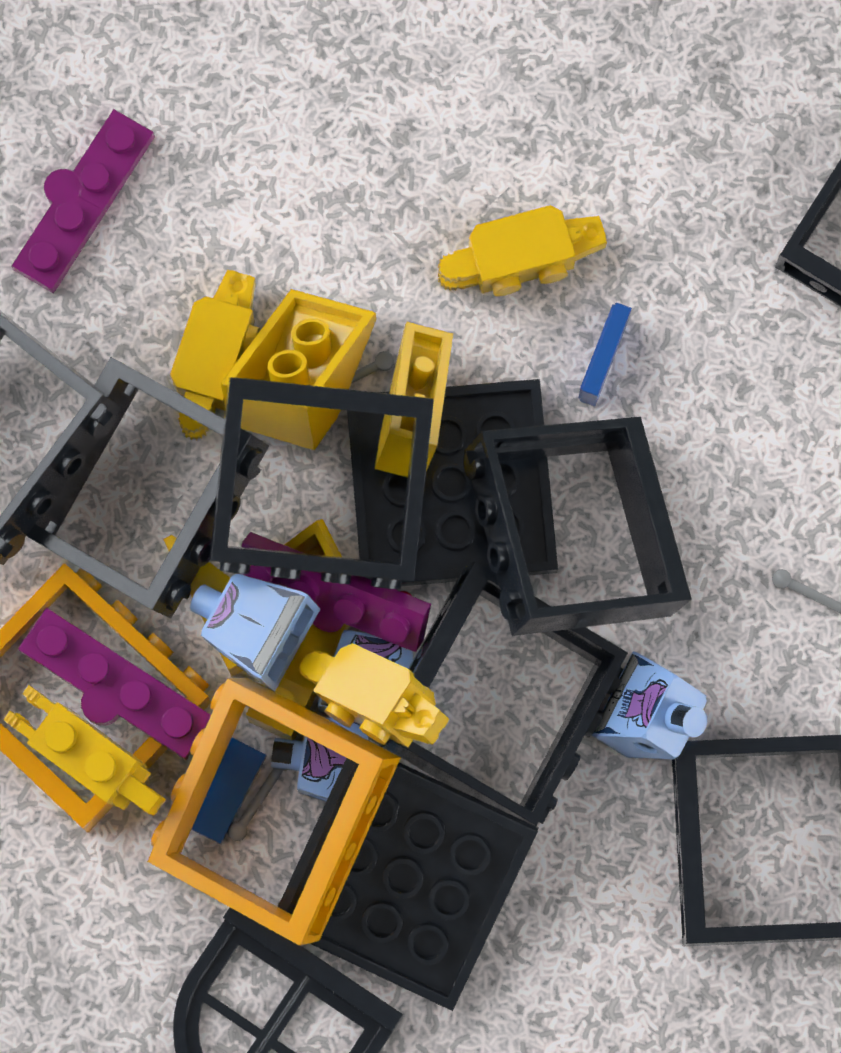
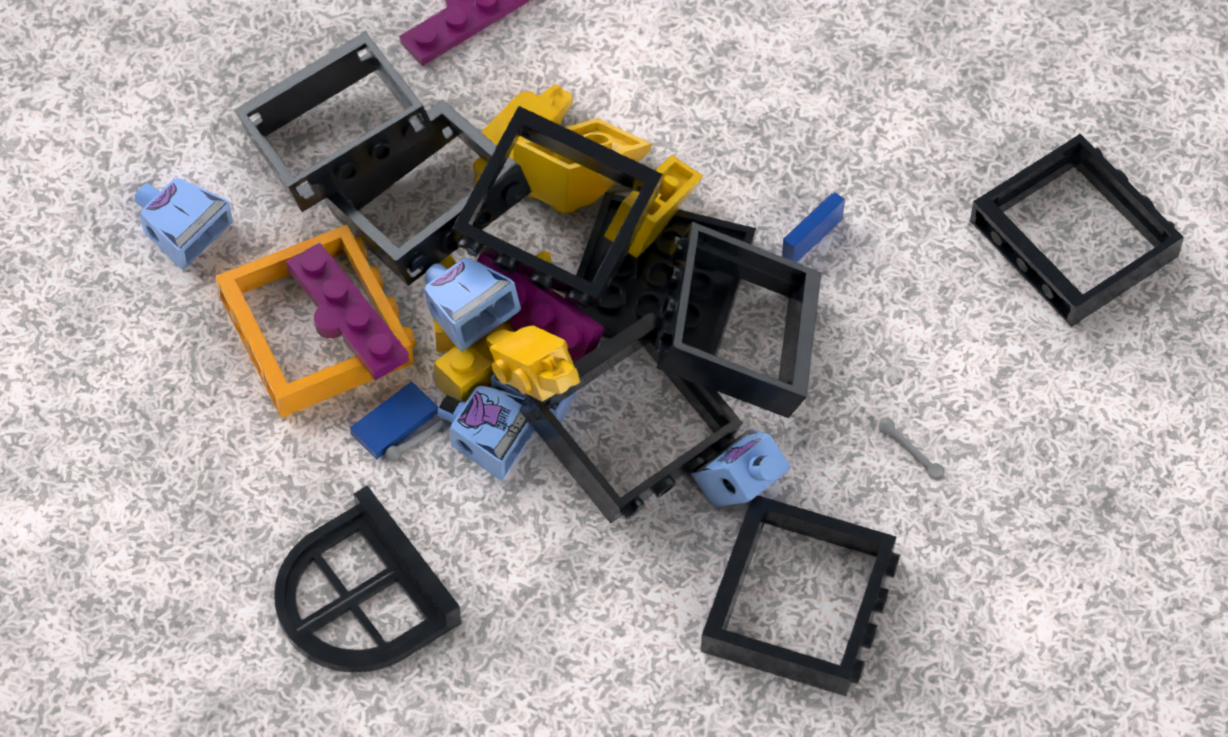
camera: 20 degrees right, 20 degrees down
(87, 754) = (303, 341): yellow hinge -> none
(342, 842) = (461, 460): light orange window -> none
(420, 884) = (503, 513): black plate -> none
(521, 250) = (777, 143): yellow hinge -> none

